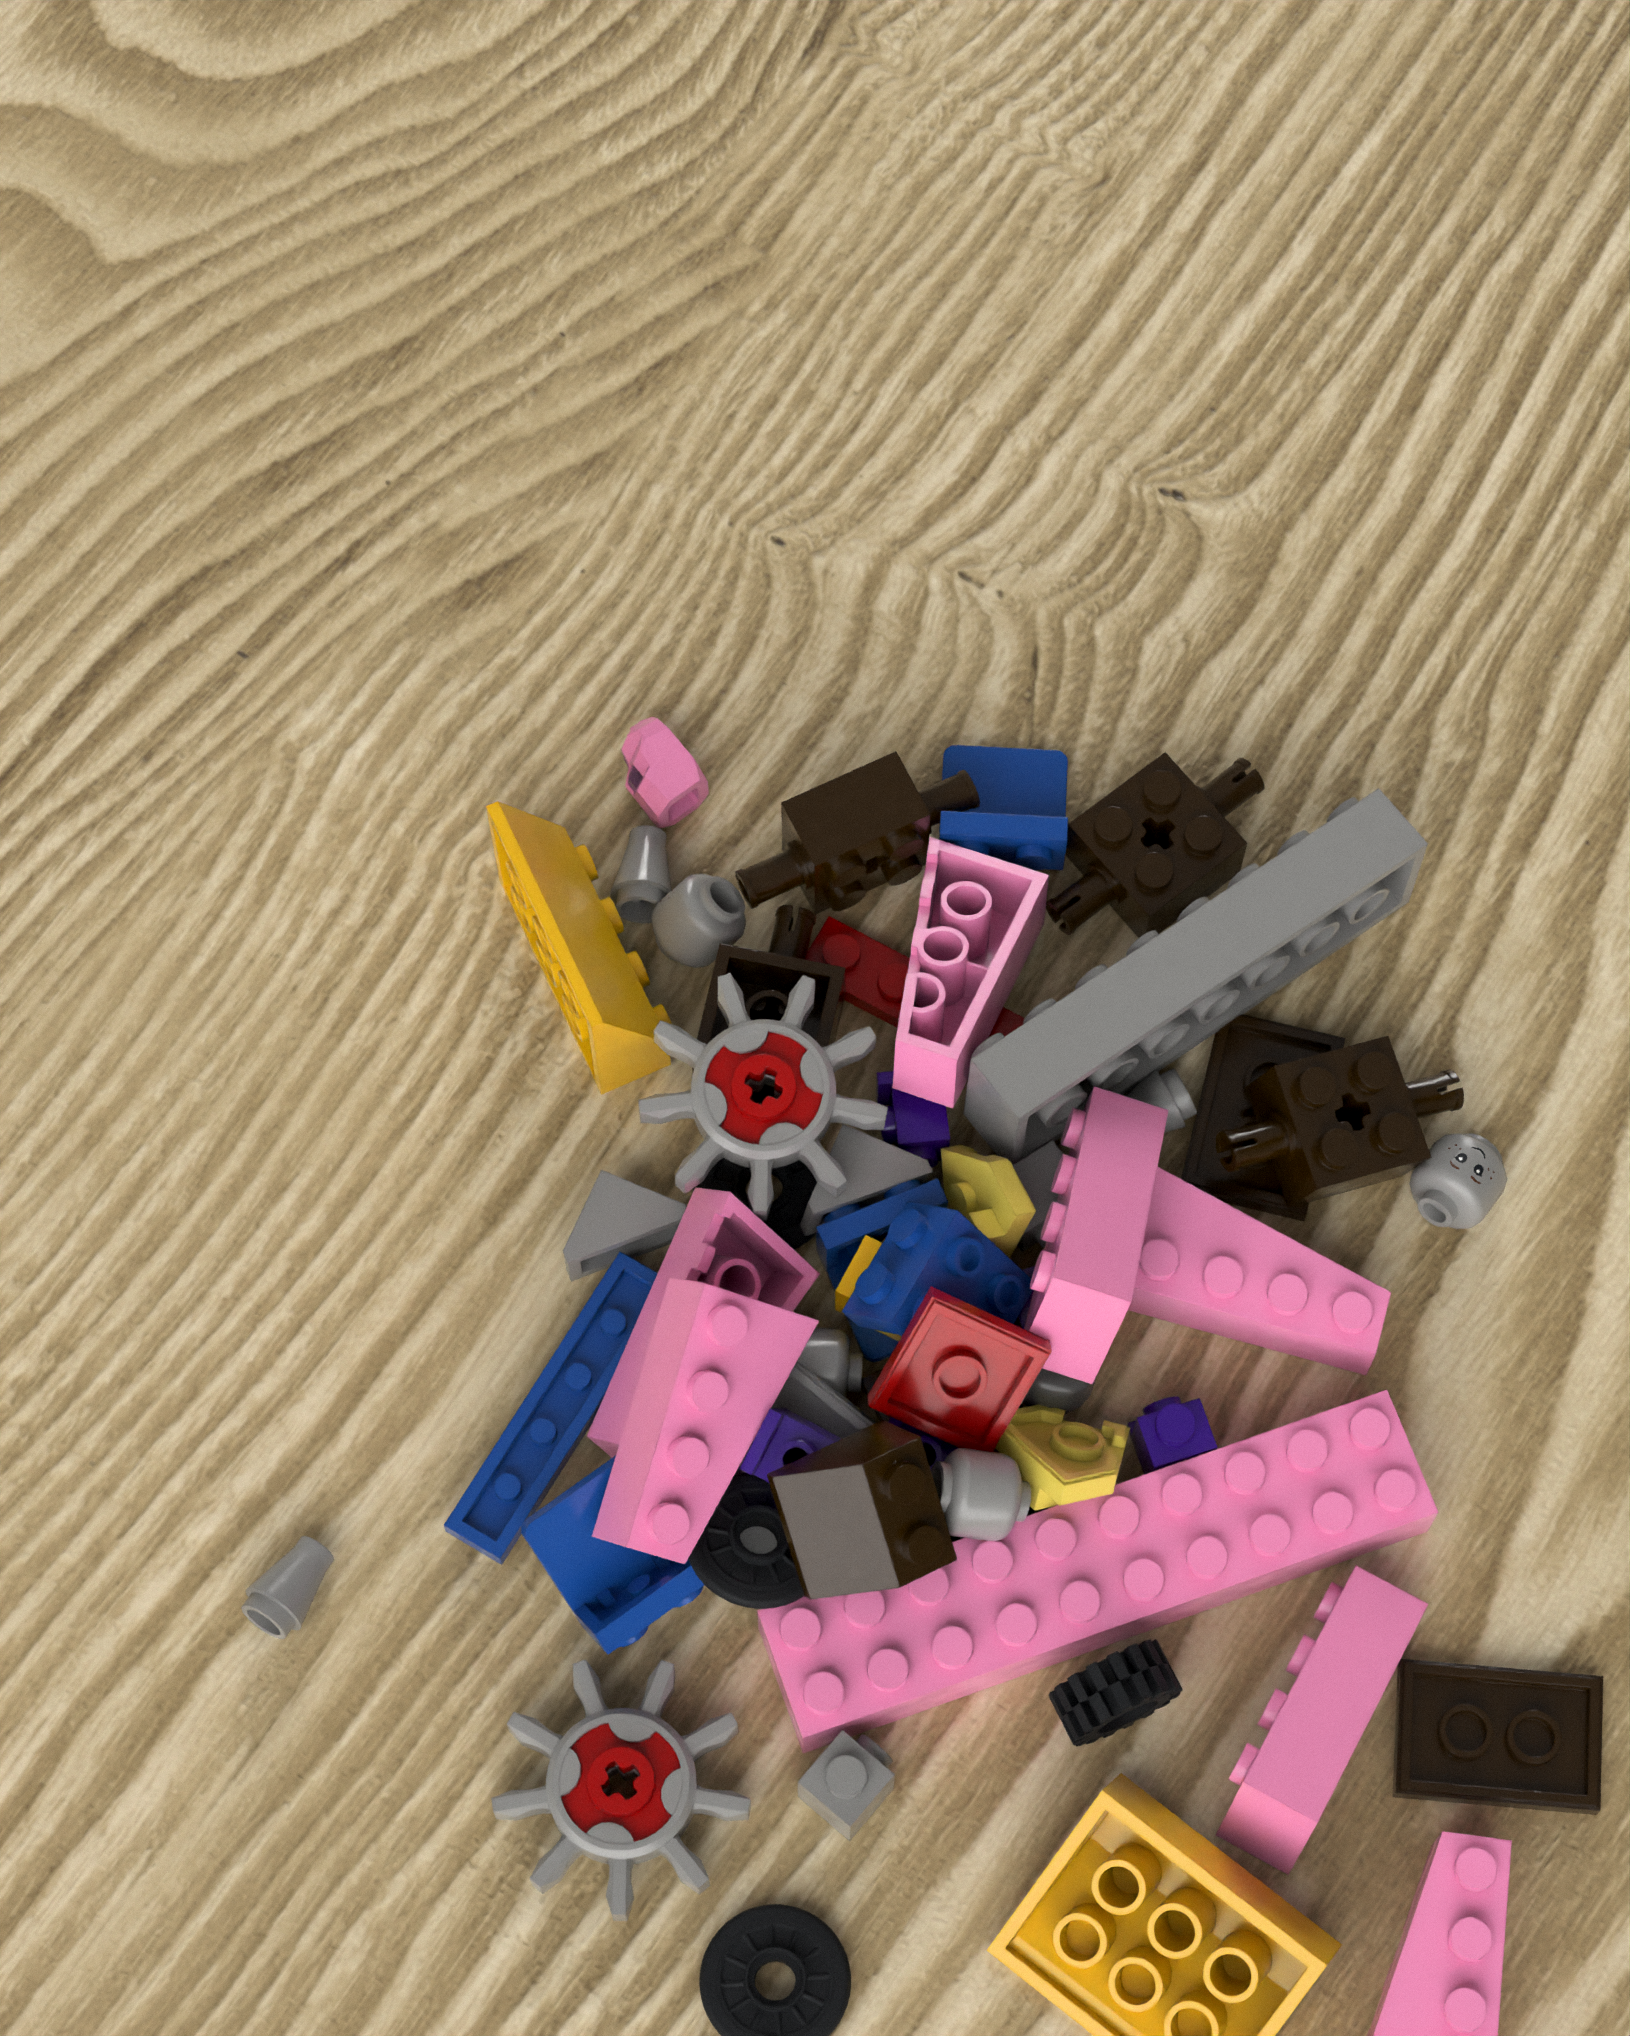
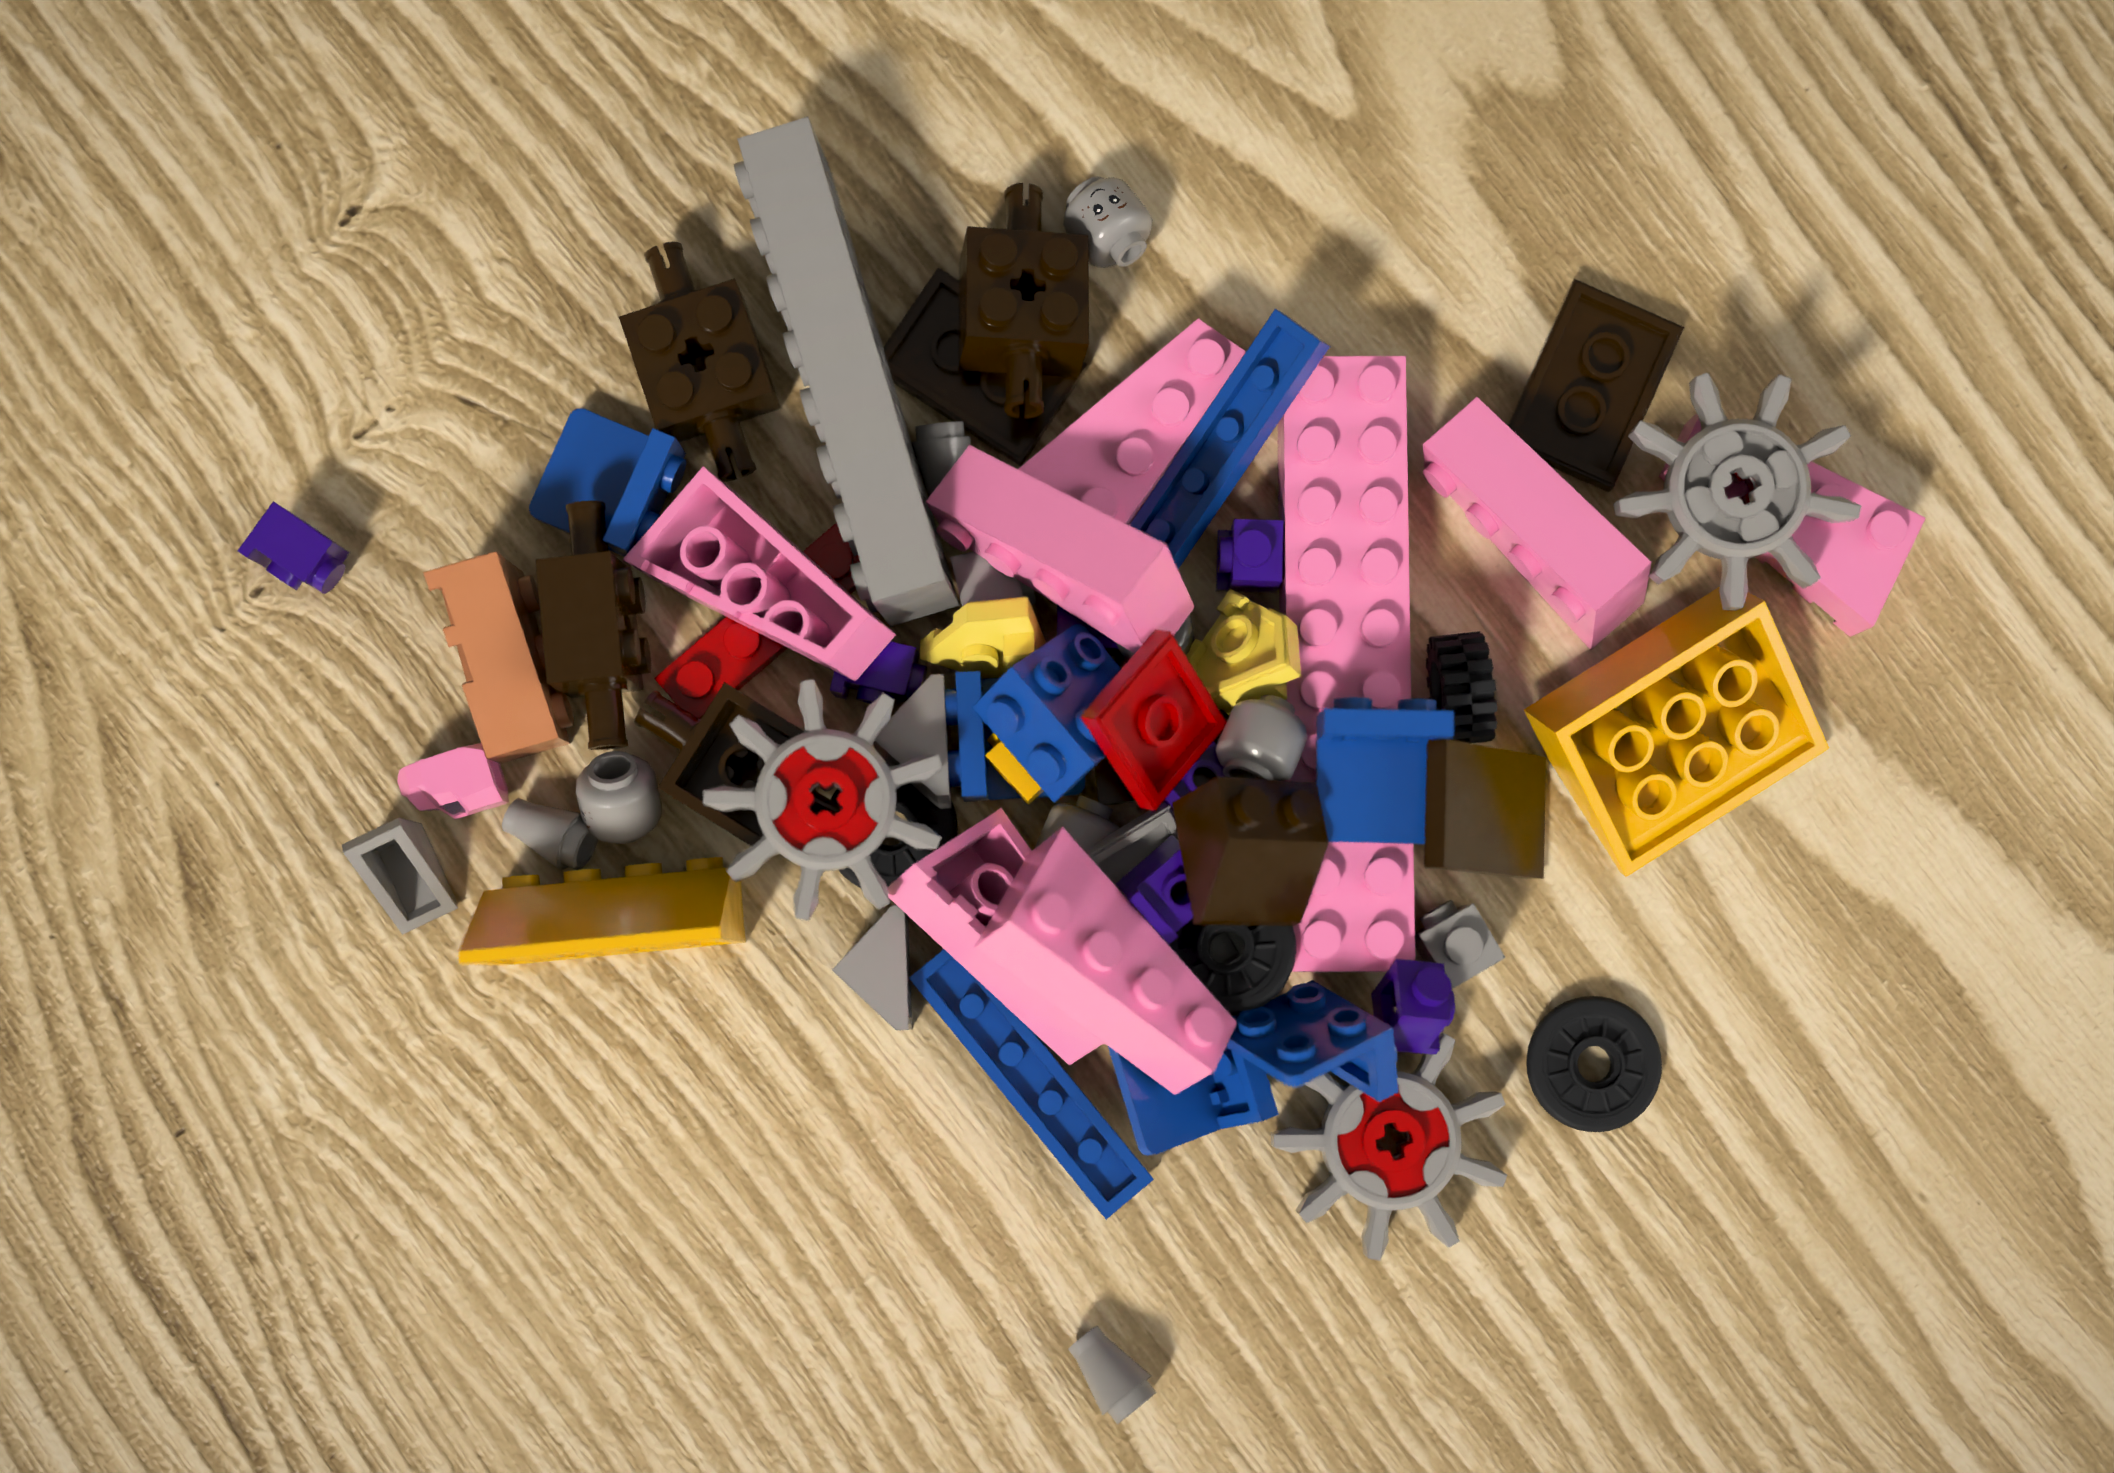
camera: 70 degrees left, 15 degrees up
(557, 754) = (402, 873): none -> light grey slope
(707, 1648) = (1318, 1033): none -> blue bracket
(763, 1749) = (1422, 1002): none -> dark purple brick
(820, 742) = (502, 656): none -> nougat wedge
(828, 555) = (294, 550): none -> dark purple brick
(993, 1619) = (1376, 768): none -> blue bracket
(995, 1753) = (1484, 810): none -> dark brown tile
(1269, 1360) = (1230, 434): none -> blue plate
(1431, 1932) = (1737, 452): none -> light grey gear

